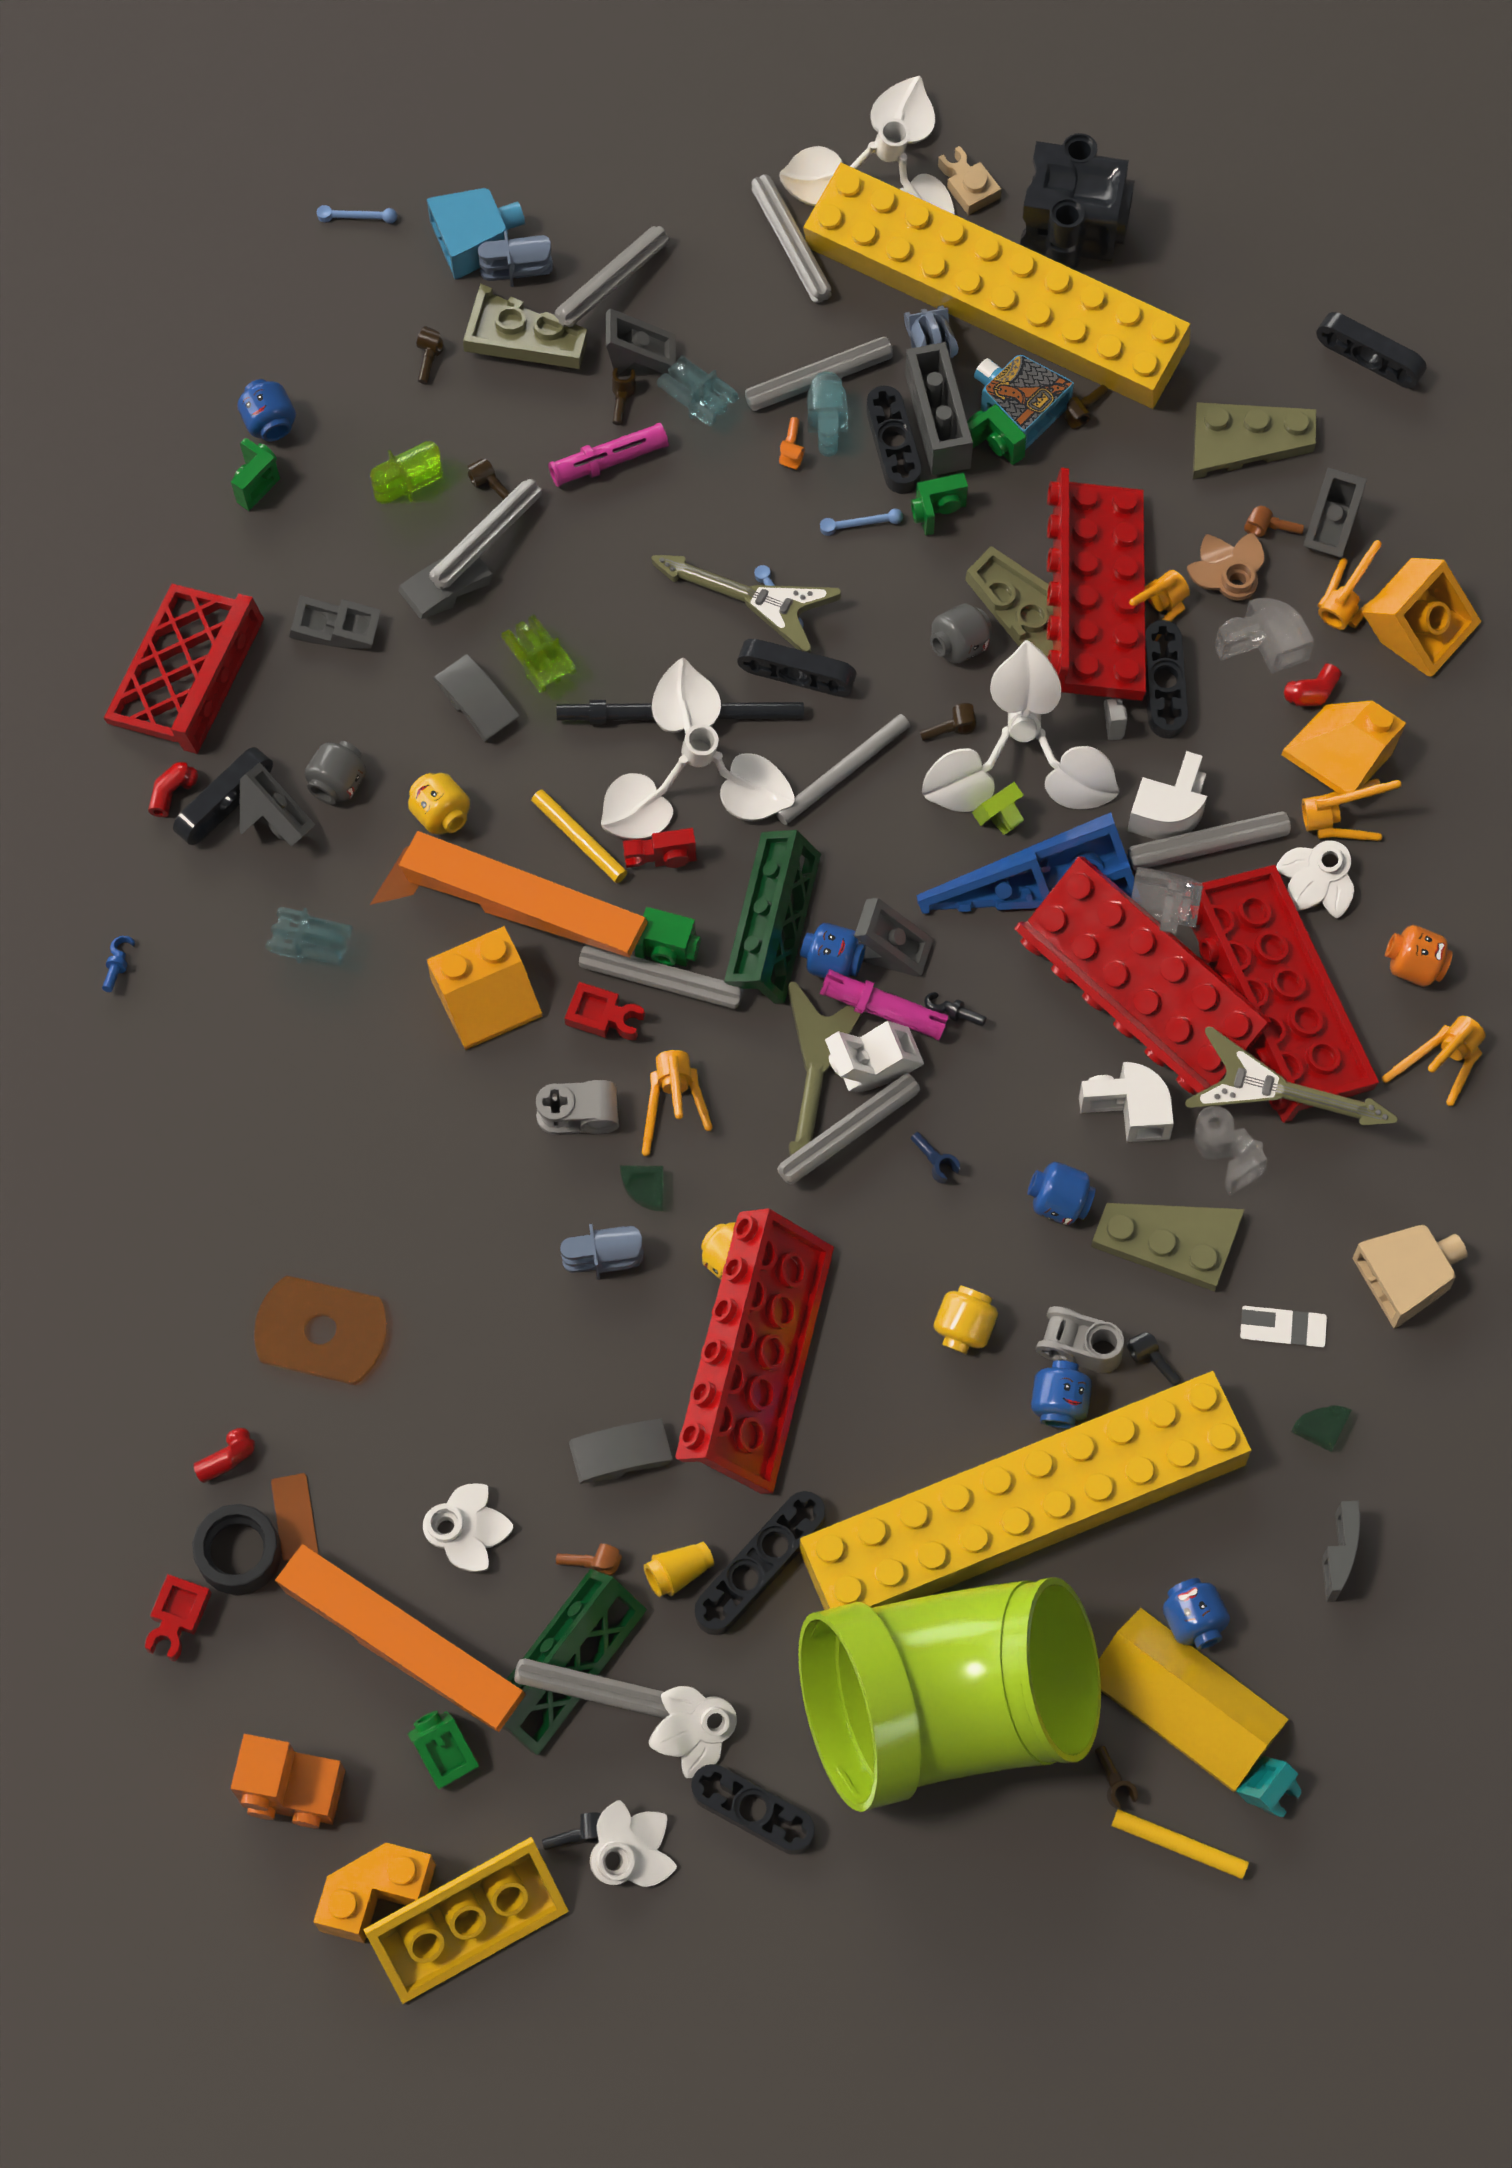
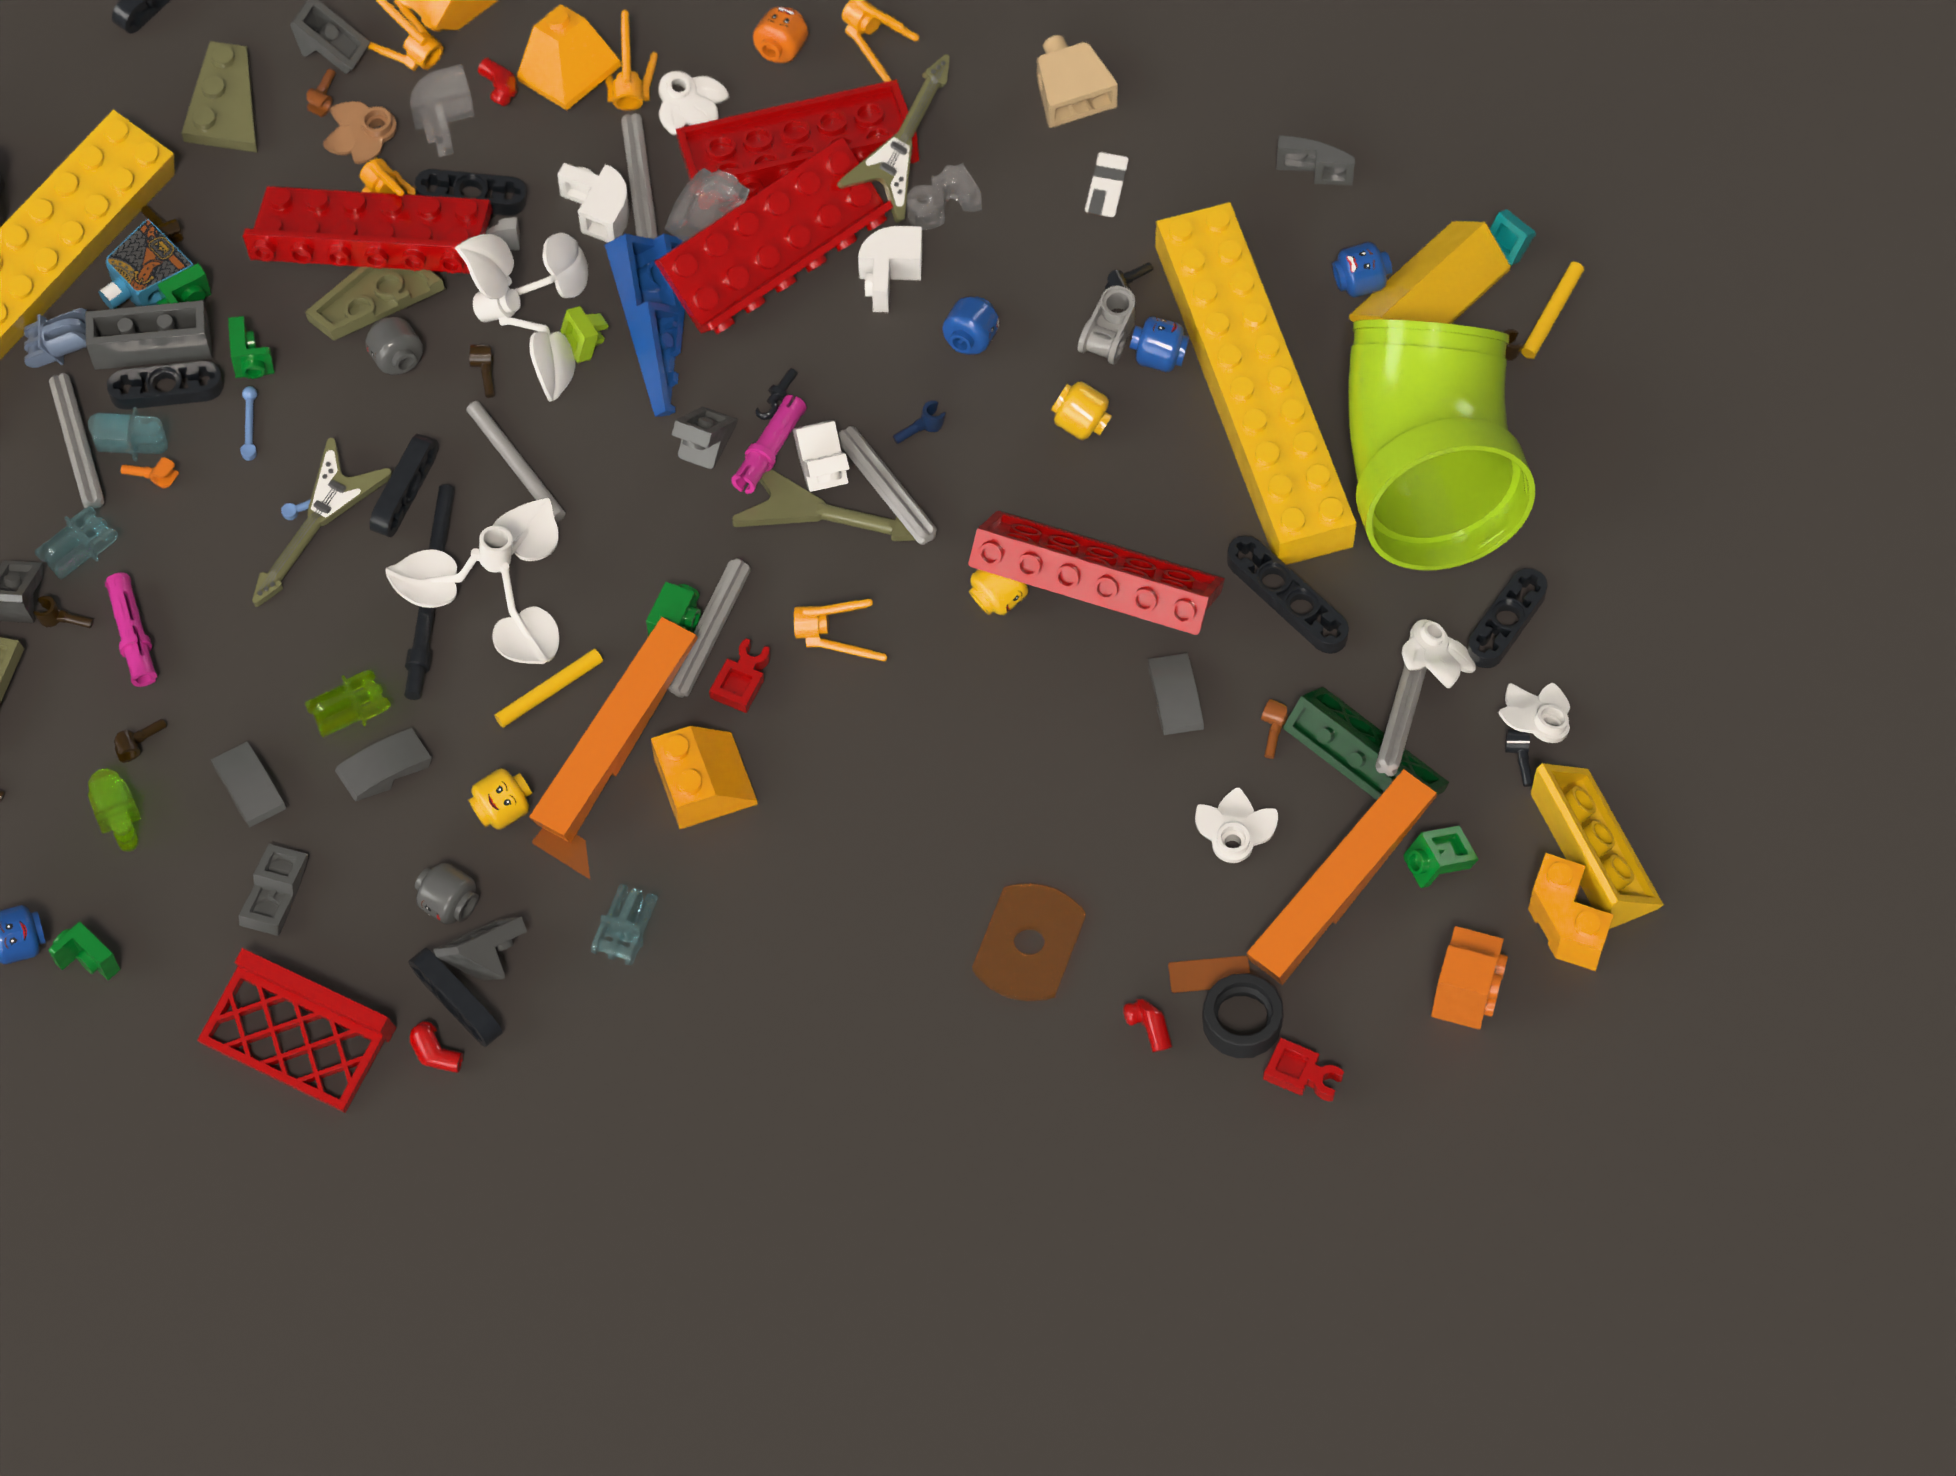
camera: 85 degrees left, 5 degrees down
(116, 963) = (622, 1107): blue hand -> none
(485, 534) = (204, 739): light grey axle -> none
(583, 1108) = (837, 702): light grey piece -> none
(603, 1250) = (982, 689): sand blue arm -> none
(644, 1185) = (918, 659): clear green tile -> none
(665, 849) = (581, 605): red plate -> none
(677, 1568) = (1290, 656): yellow cone -> none
(769, 911) = (661, 527): dark green fence -> none
(832, 949) = (710, 478): blue head -> none
(1170, 1239) = (1020, 253): olive wing -> none
(1322, 1425) = (1200, 165): clear green tile -> none

